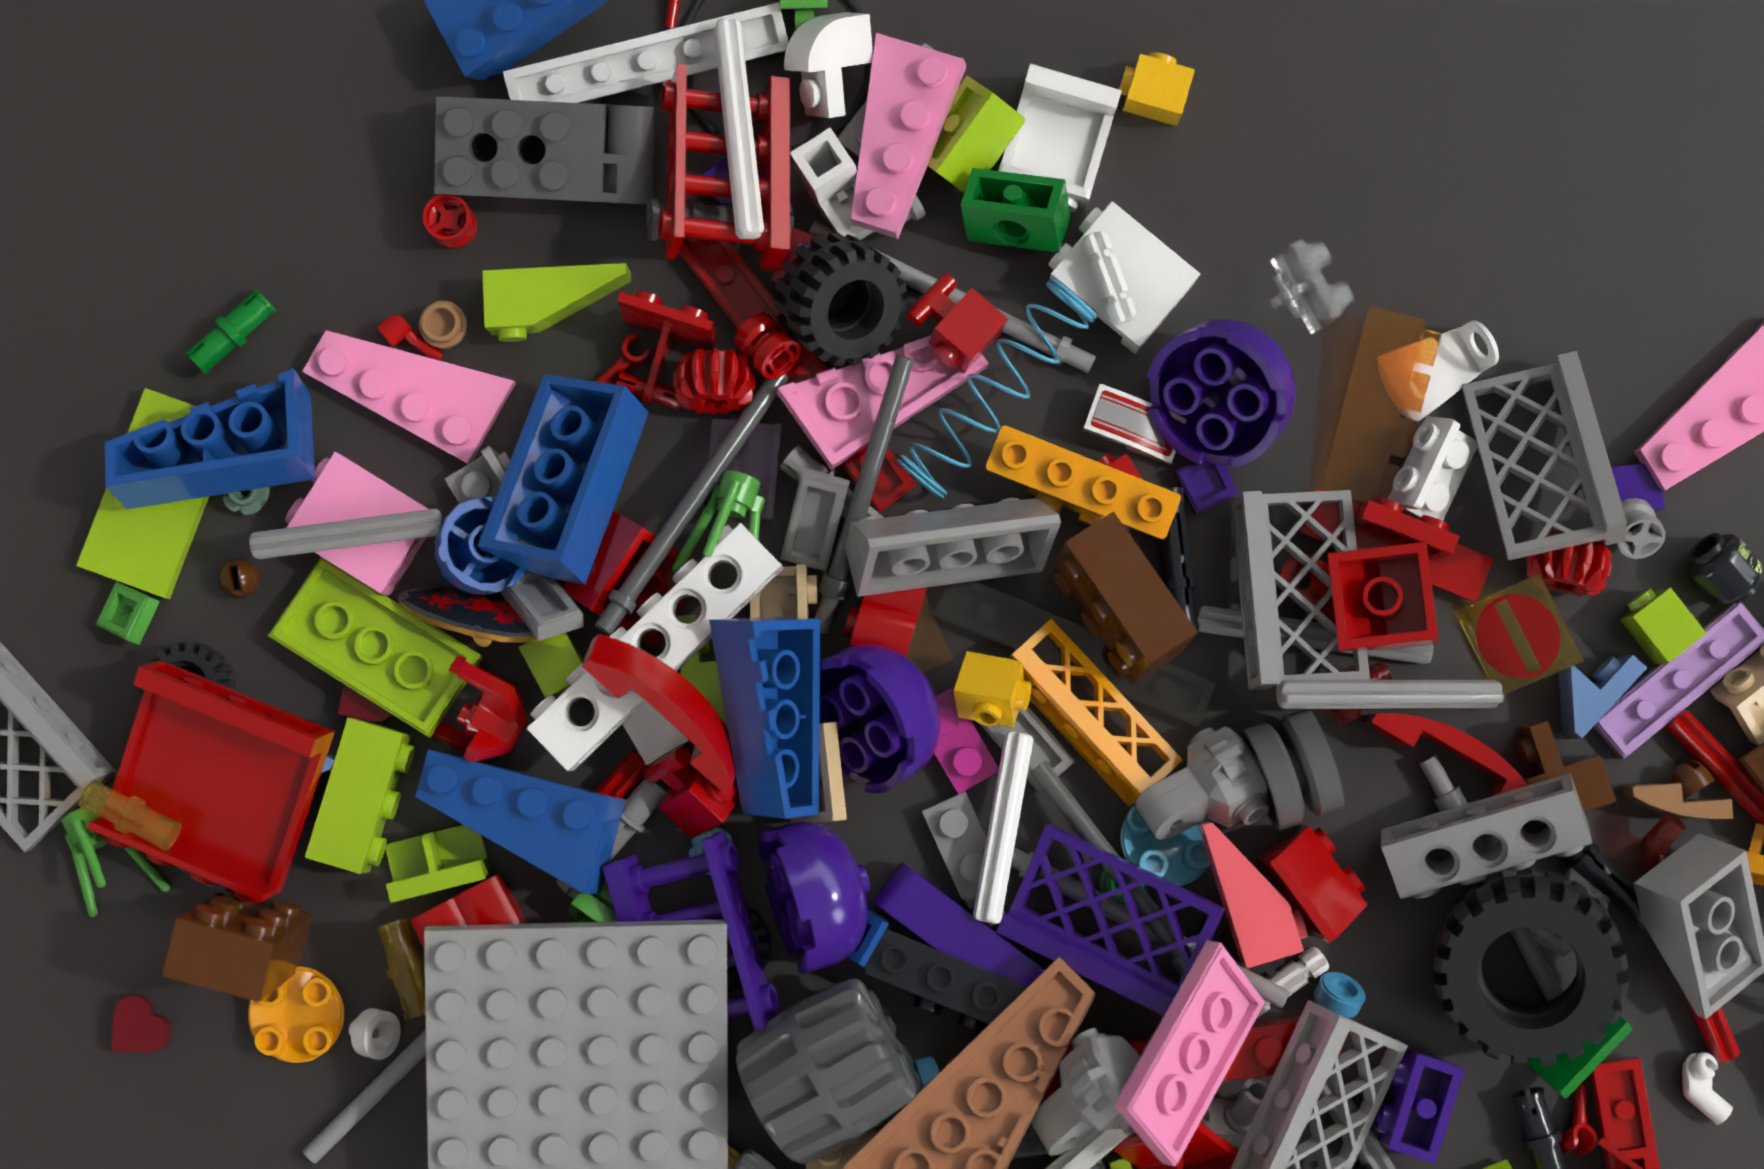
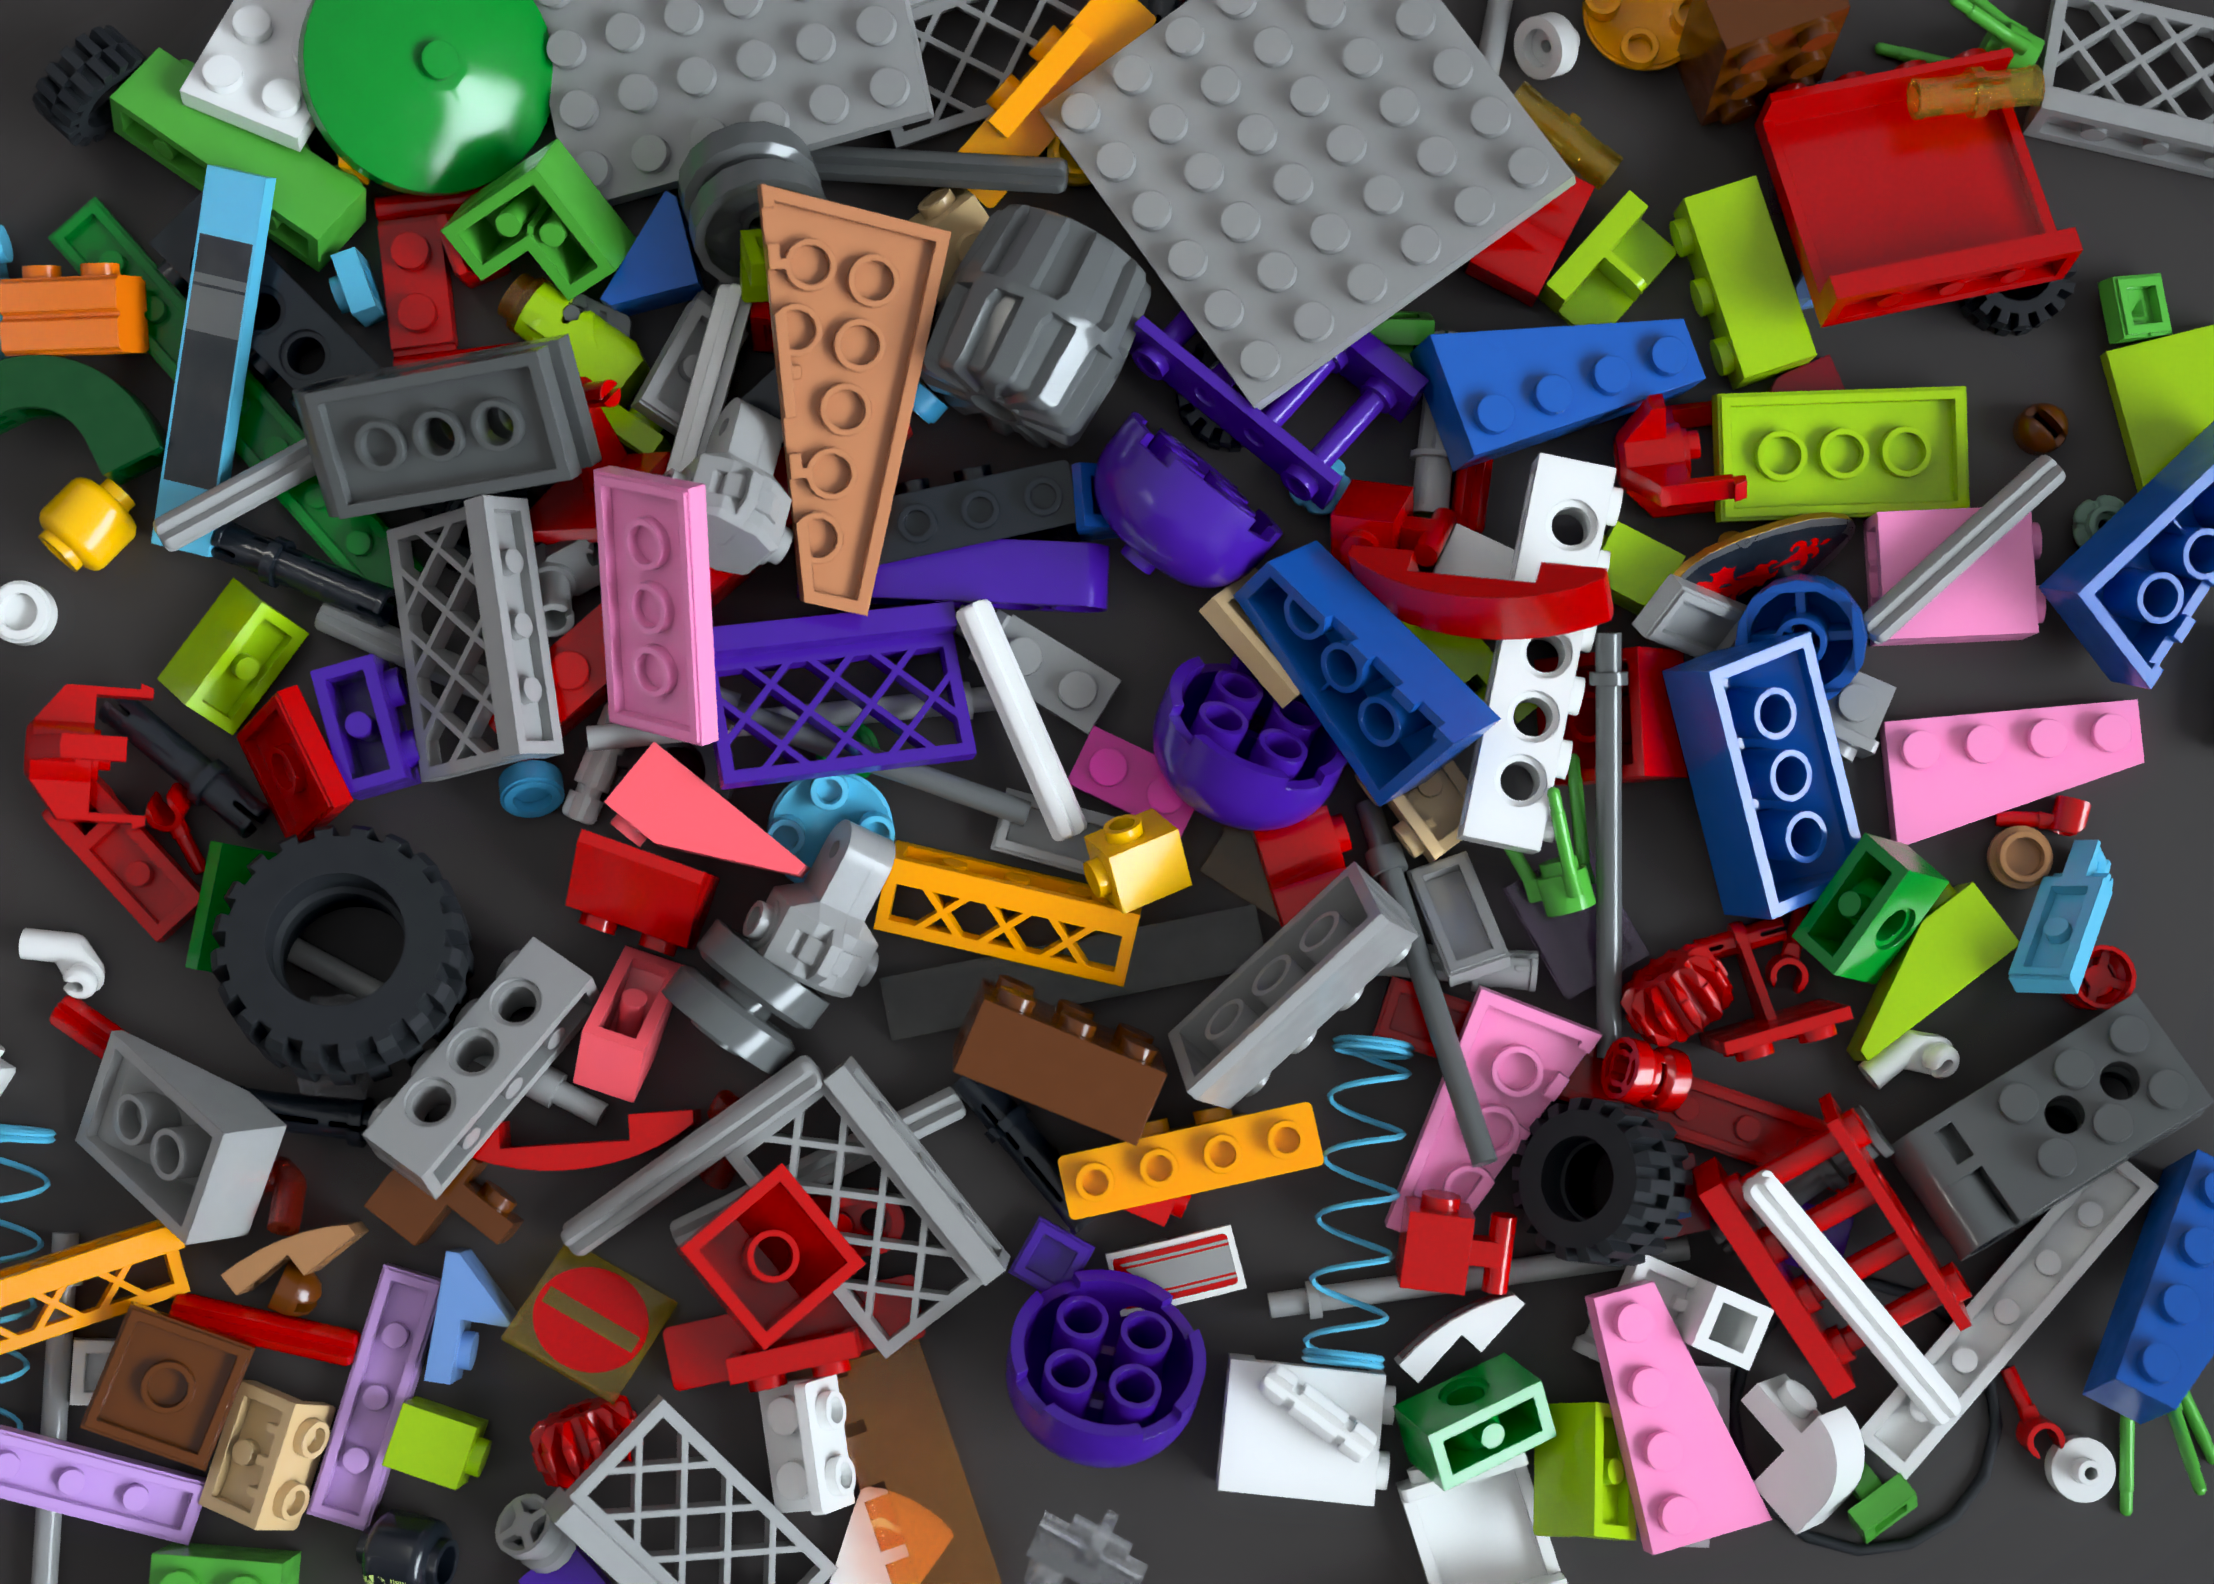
camera: 145 degrees right, 0 degrees up
(447, 264) = (2064, 924): none -> medium azure hinge
(559, 353) = (1870, 909): none -> green brick
(591, 251) = (1914, 1052): none -> white arm
(973, 270) = (1476, 1321): none -> white slope
(1376, 804) = (625, 1026): none -> coral slope
(1482, 1110) = (294, 765): none -> red tile

